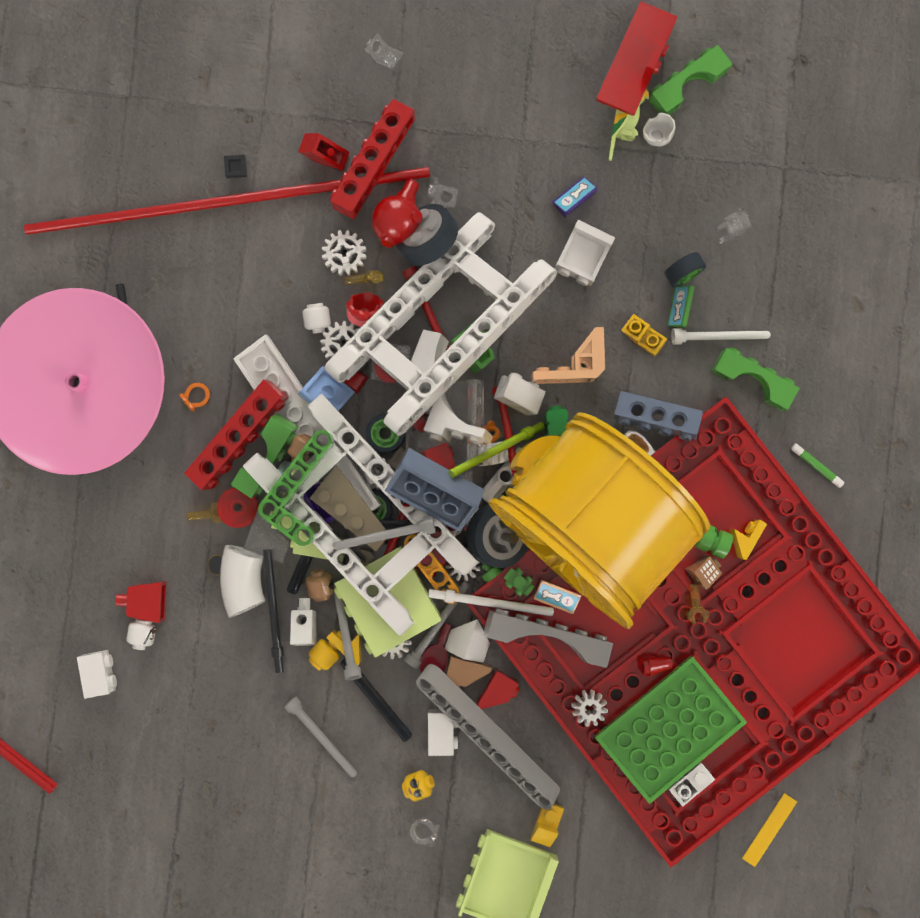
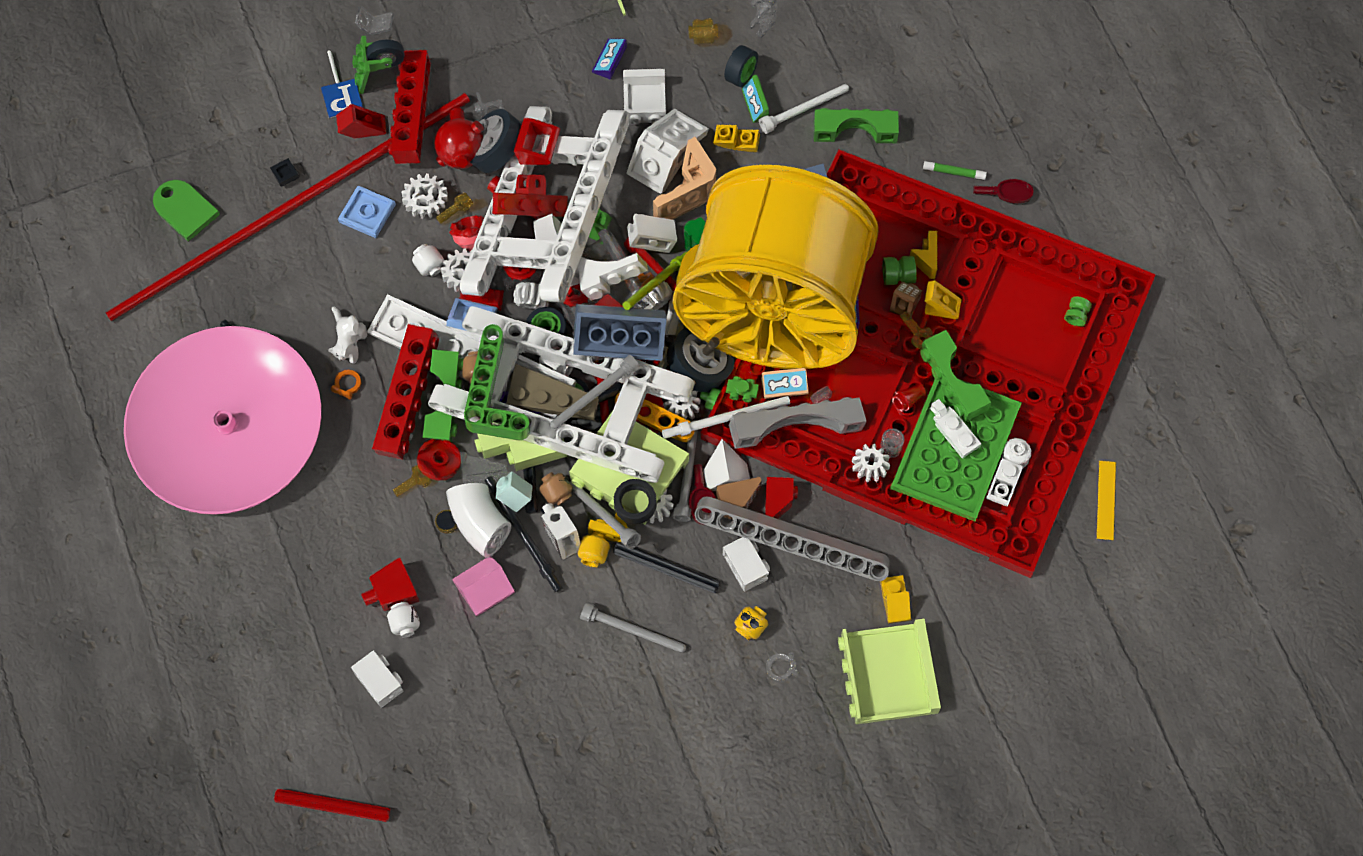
camera: 30 degrees left, 20 degrees down
(134, 157) = (185, 209): none -> bright green tile
(216, 352) = (348, 333): none -> white animal
(219, 635) = (483, 585): none -> bright pink slope
(281, 574) = (513, 491): none -> light aqua brick
(289, 240) = (366, 211): none -> light blue tile
(321, 113) = (341, 94): none -> blue piece
(358, 652) = (635, 484): none -> black tyre
(367, 96) = (379, 55): none -> plate
(383, 397) = (529, 296): none -> white gear
(428, 312) = (529, 199): none -> red plate
(453, 252) = (529, 130): none -> red tile
(576, 315) = (663, 149): none -> white bracket
(583, 619) = (821, 395): none -> clear tile
(617, 703) = (893, 438): none -> clear wheel
(671, 214) = (703, 31): none -> clear yellow piece
(676, 719) = (954, 429): none -> white hinge
(702, 647) = (968, 399): none -> bright green arch
(718, 761) = (1017, 451): none -> white head
(732, 593) = (941, 301): none -> yellow slope
(845, 658) = (1078, 309): none -> bright green wheel
(853, 510) = (1009, 190): none -> dark red piece

